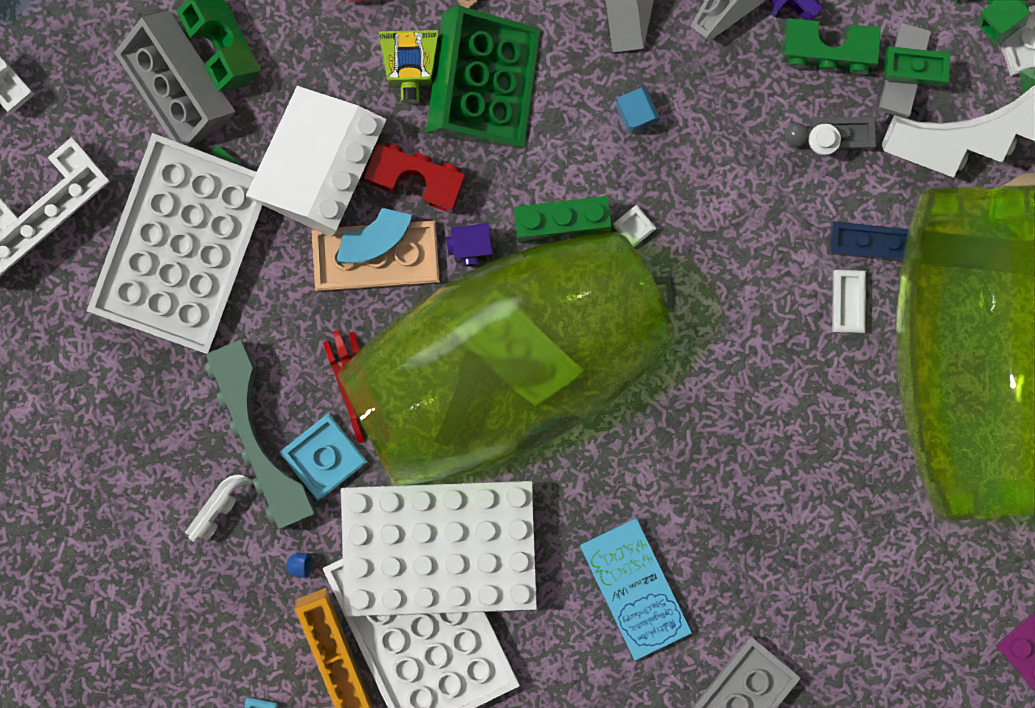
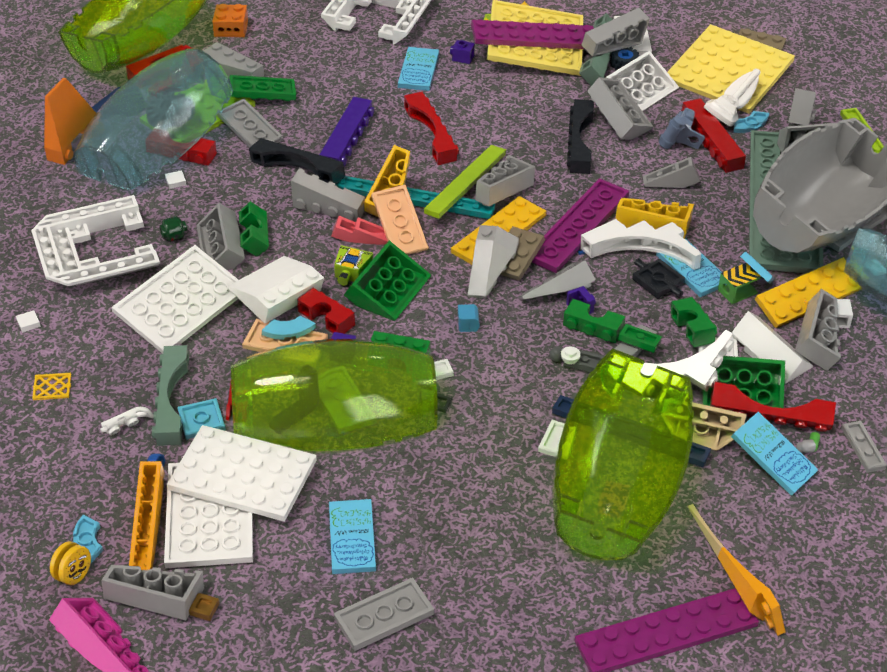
camera: 20 degrees right, 40 degrees down
(59, 457) = (51, 386): none -> yellow window
(85, 85) = (173, 228): none -> dark green head

